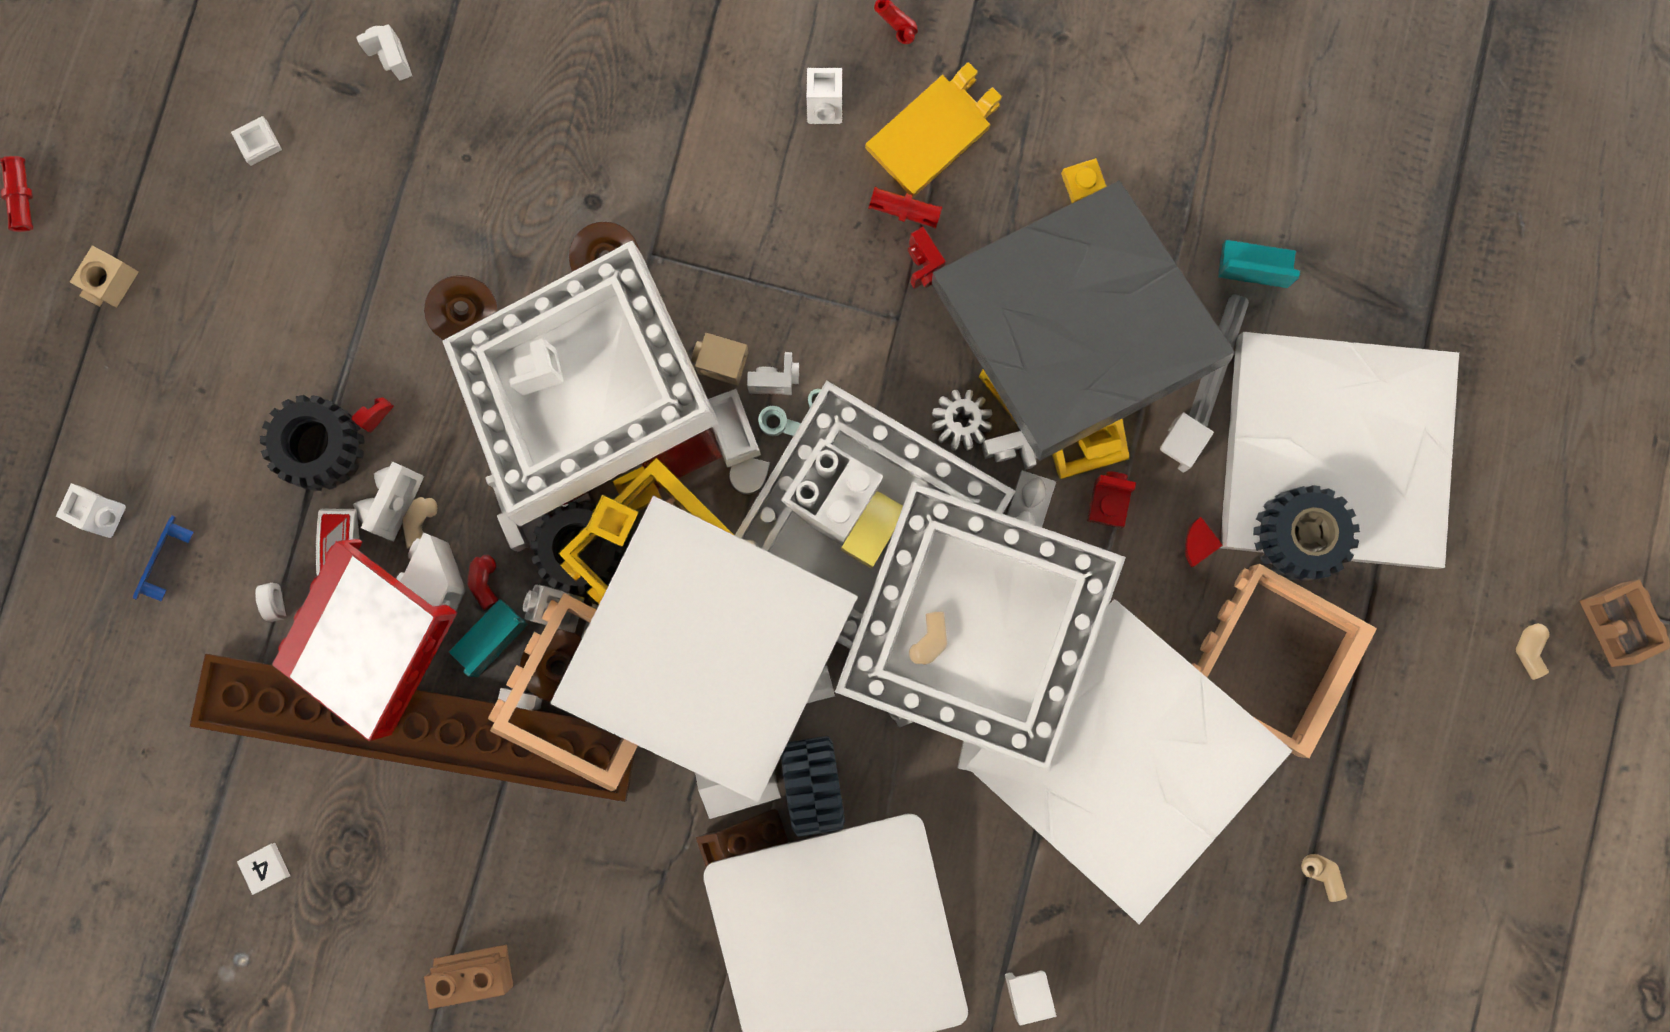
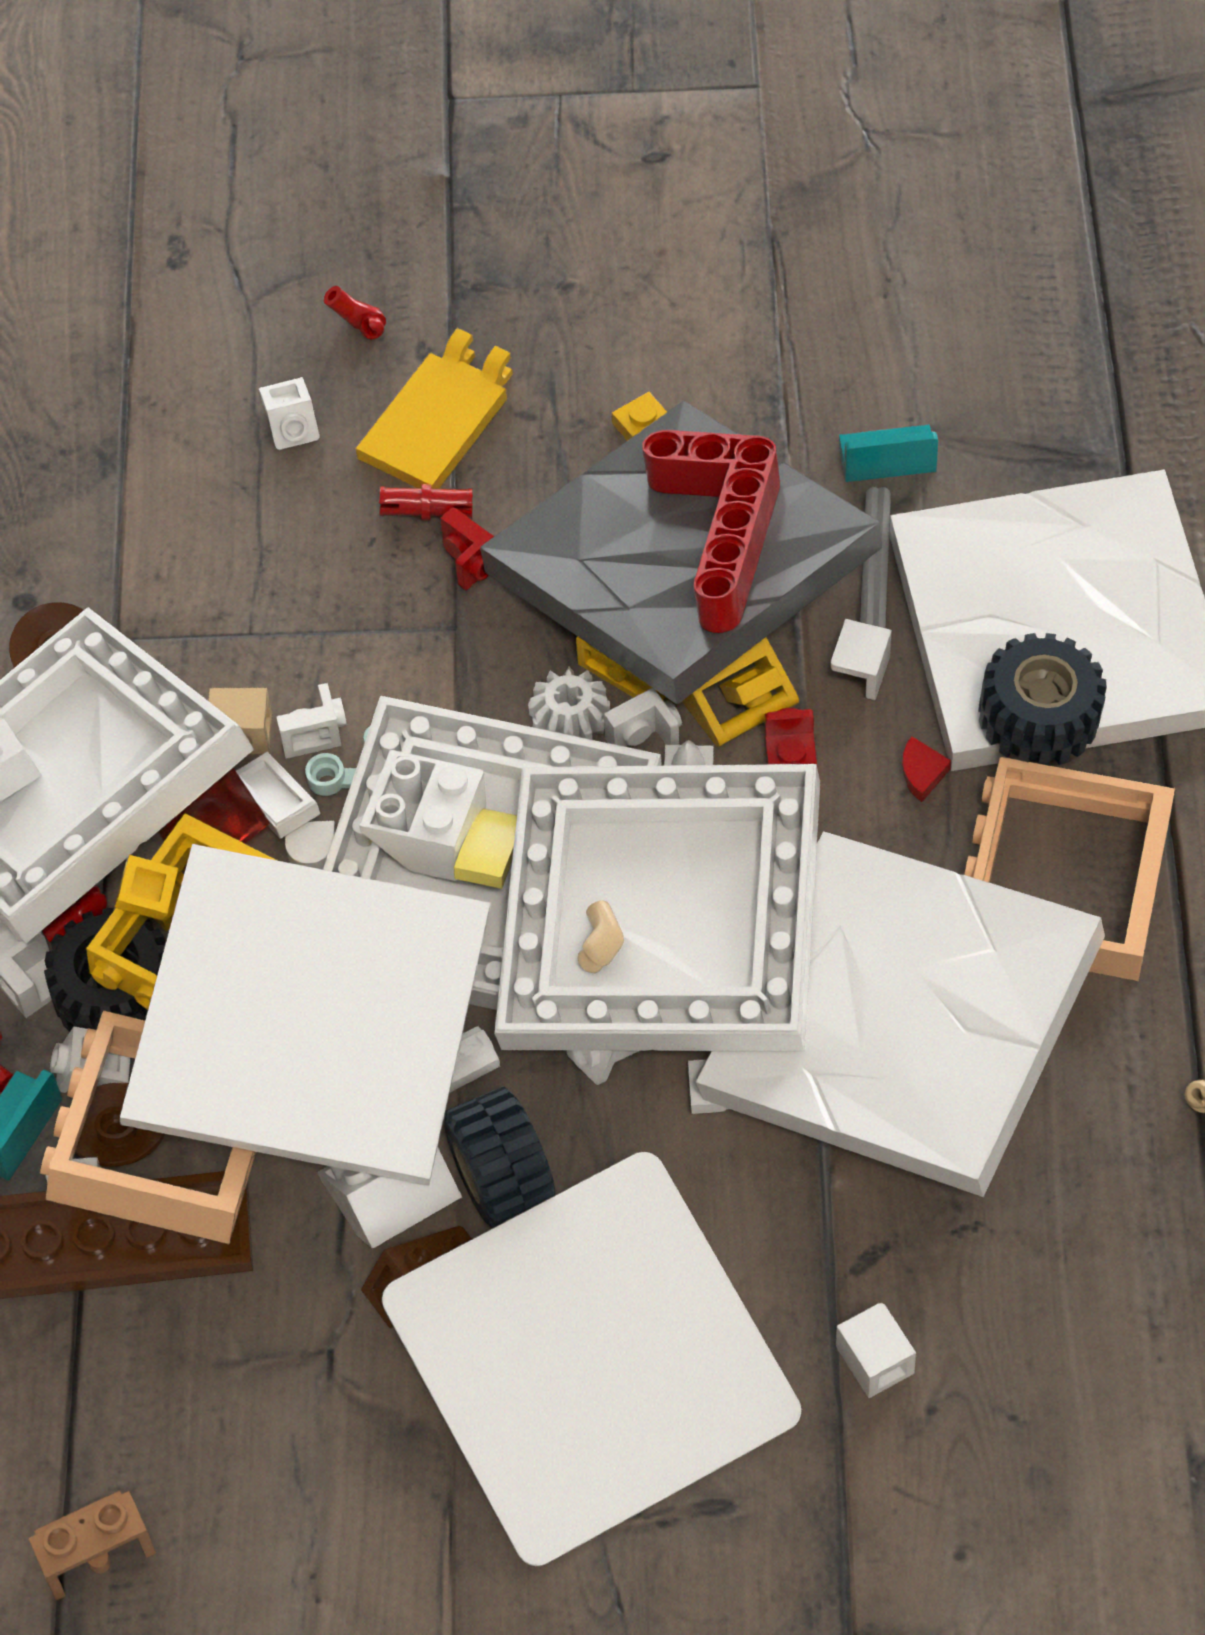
camera: 10 degrees left, 25 degrees down
(1130, 317) = (747, 481): none -> red beam

